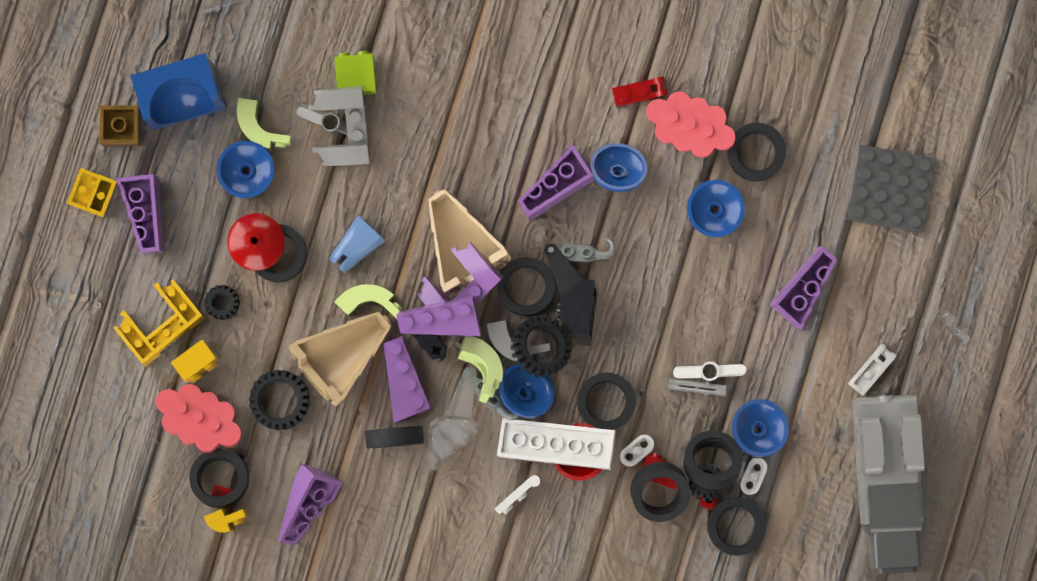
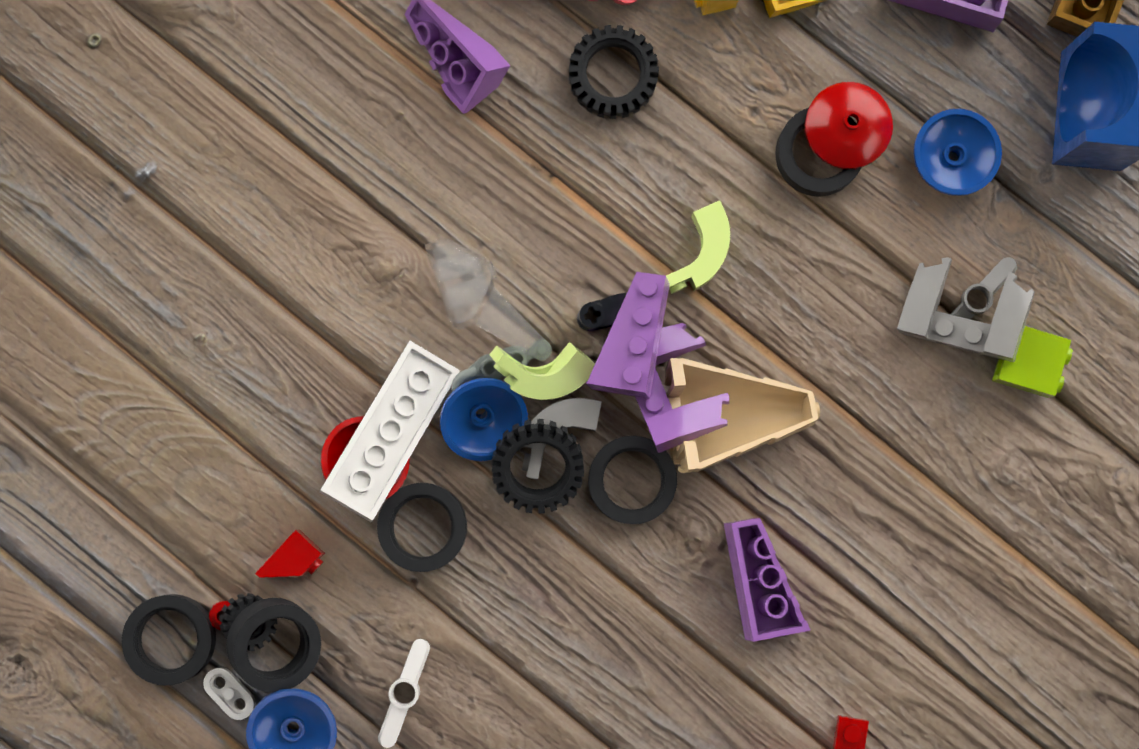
camera: 105 degrees right, 0 degrees up
(210, 302) = (787, 31): black tyre -> none
(247, 118) = (1024, 184): yellowish green arch -> none
(340, 354) = (642, 180): tan cone -> none
(356, 244) = (789, 266): medium blue piece -> none
(394, 437) = (493, 205): black tyre -> none
(404, 385) = (562, 252): medium lavender wedge -> none
(518, 494) = (343, 350): white plate -> none
(577, 295) = (589, 547): black slope -> none
(618, 160) = (759, 688): blue dish -> none
(636, 450) = (334, 542): white plate -> none
(666, 512) = (230, 550): black tyre -> none
(674, 385) = (387, 668): light grey pin -> none

